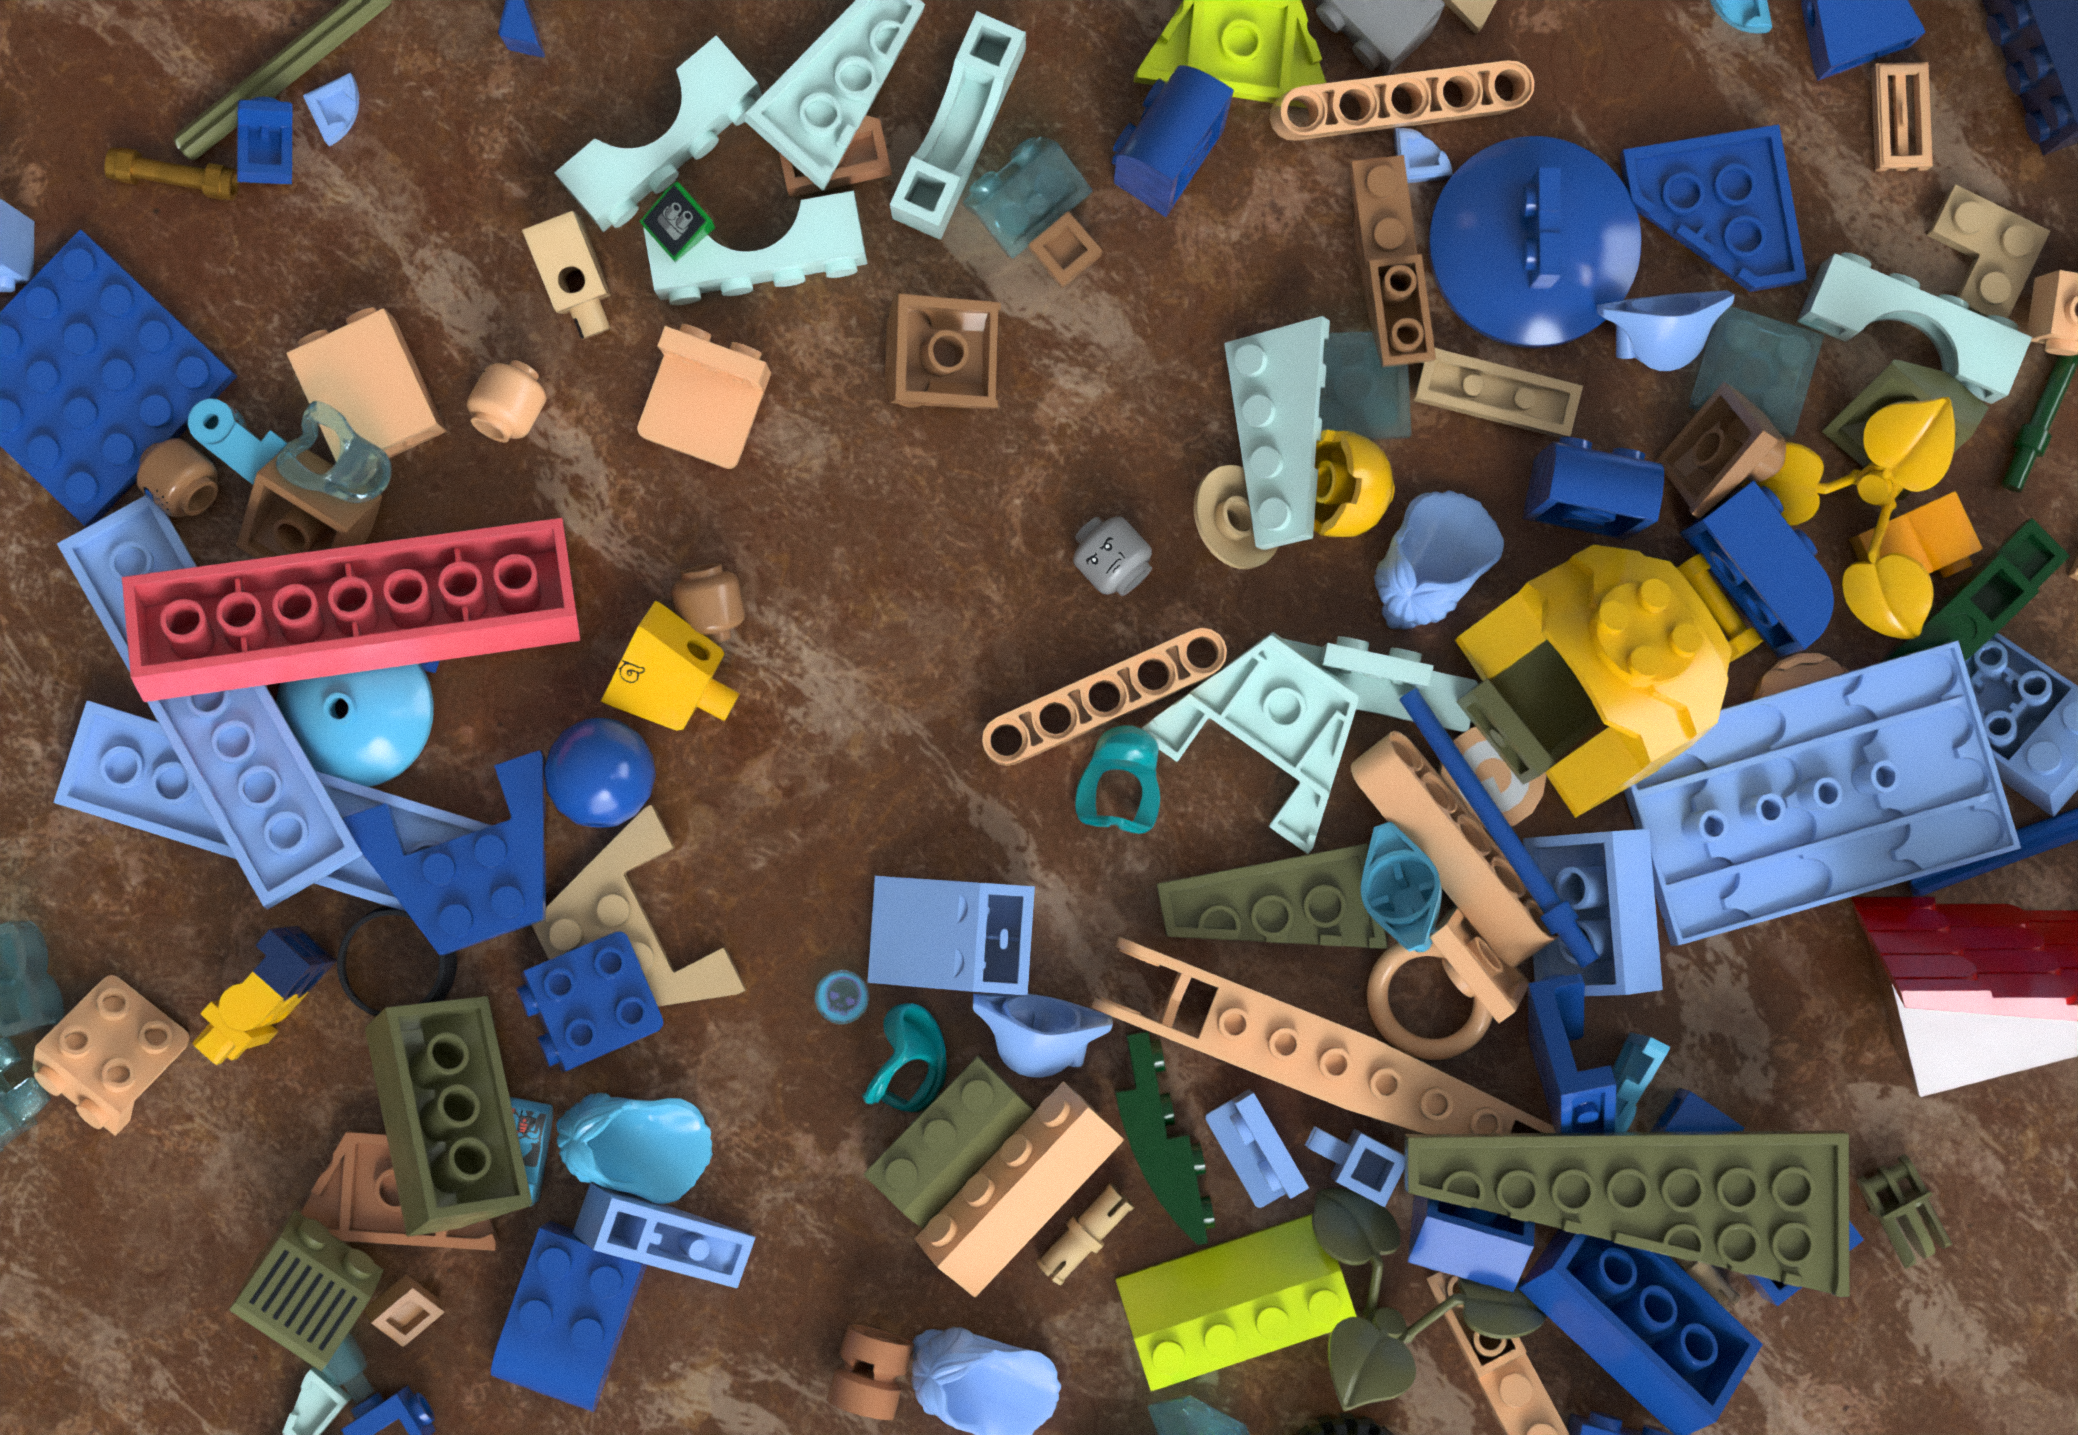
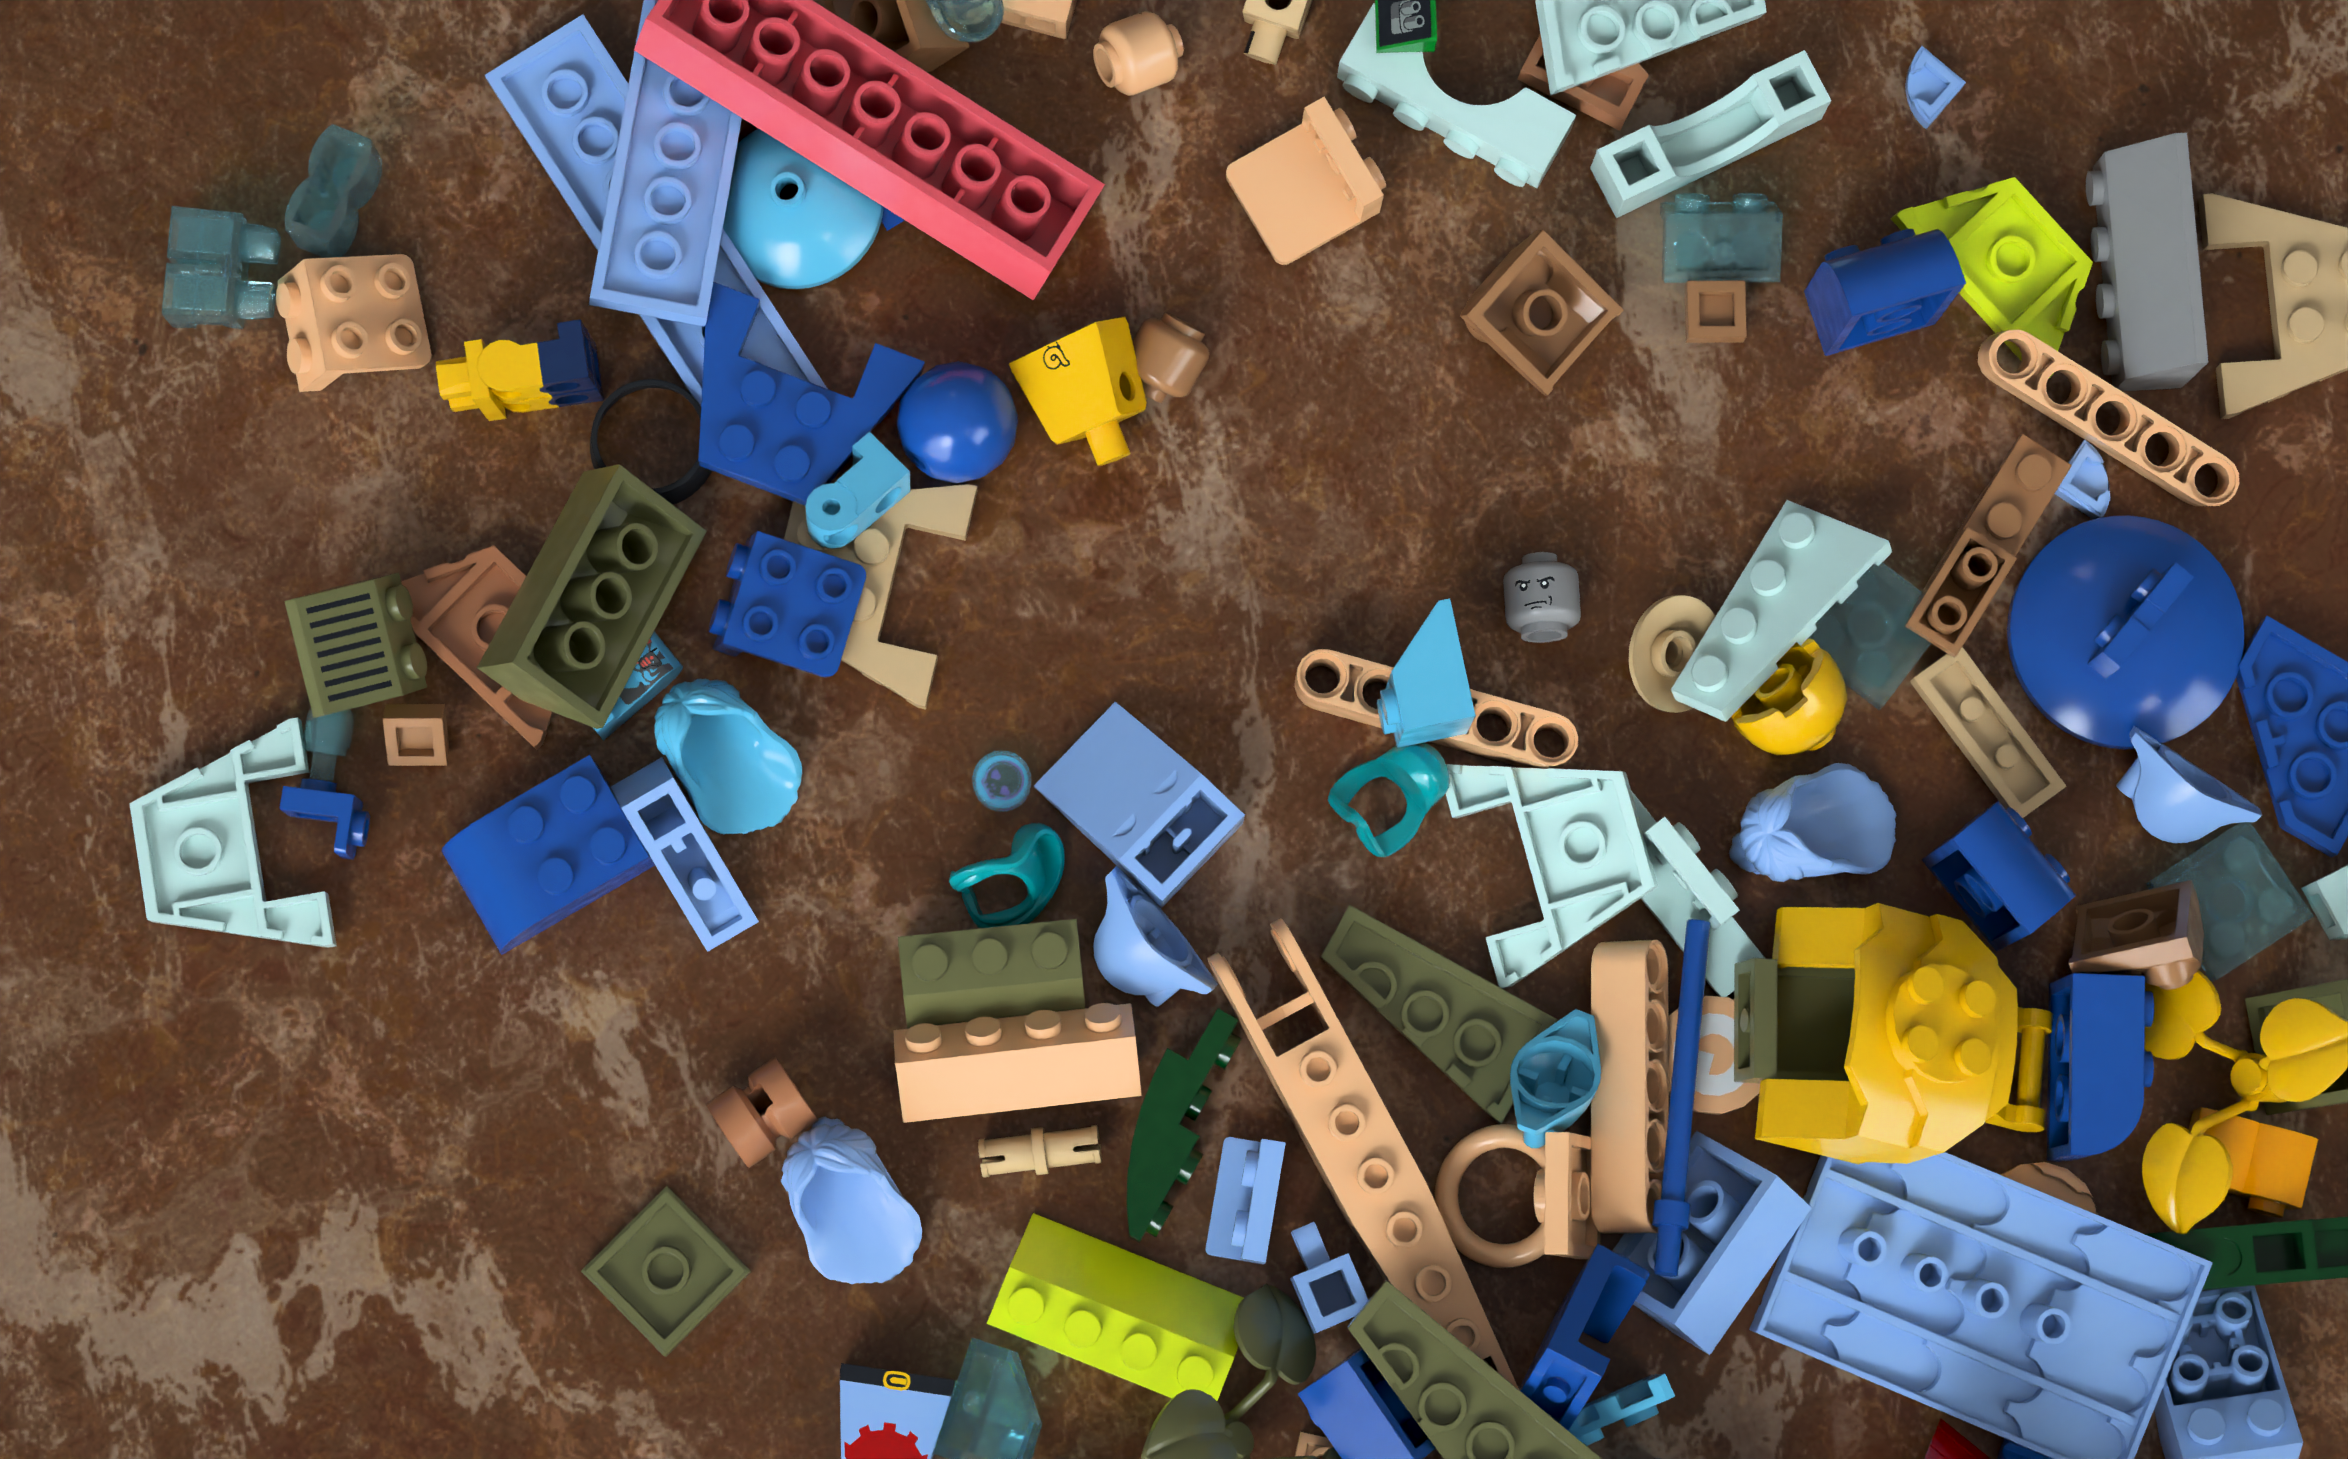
camera: 35 degrees right, 5 degrees down
(574, 886) = (859, 497): none -> medium azure leg
(1088, 689) = (1429, 685): none -> medium azure slope

